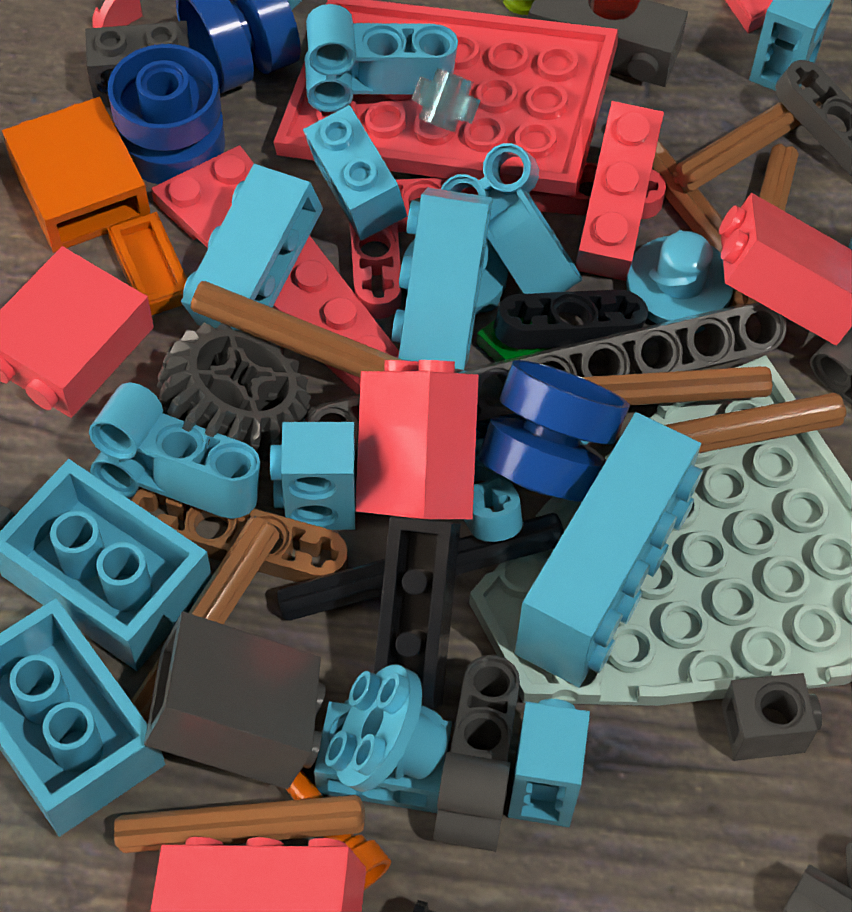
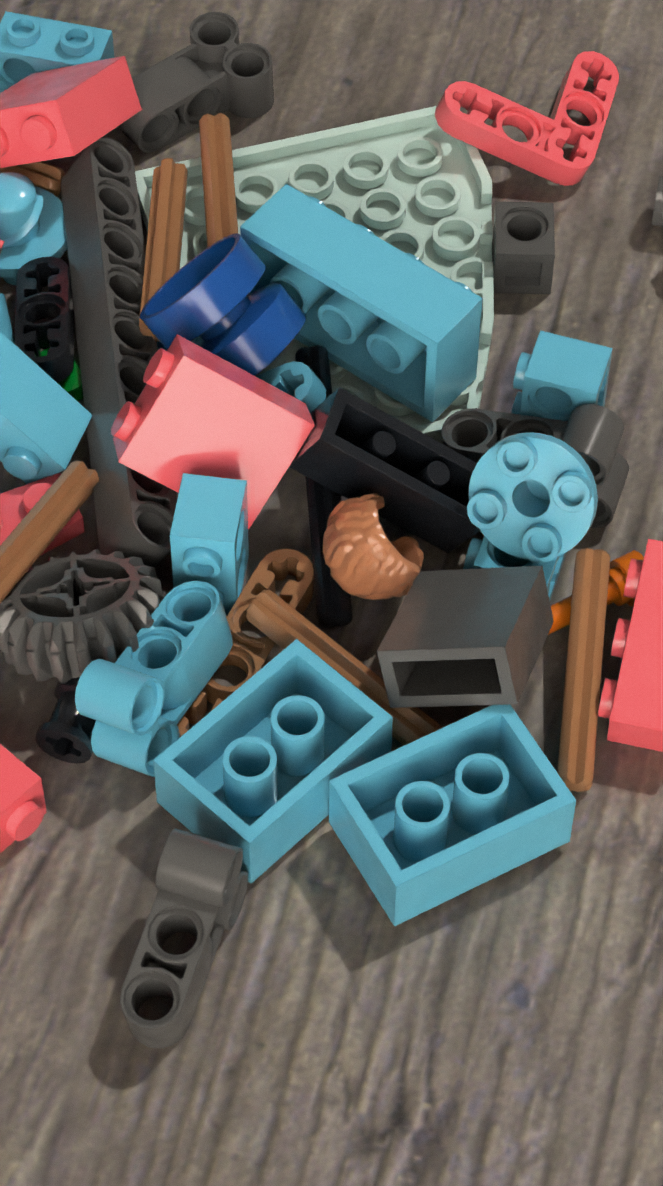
camera: 80 degrees left, 5 degrees down
(330, 608) = (363, 556): none -> nougat hair

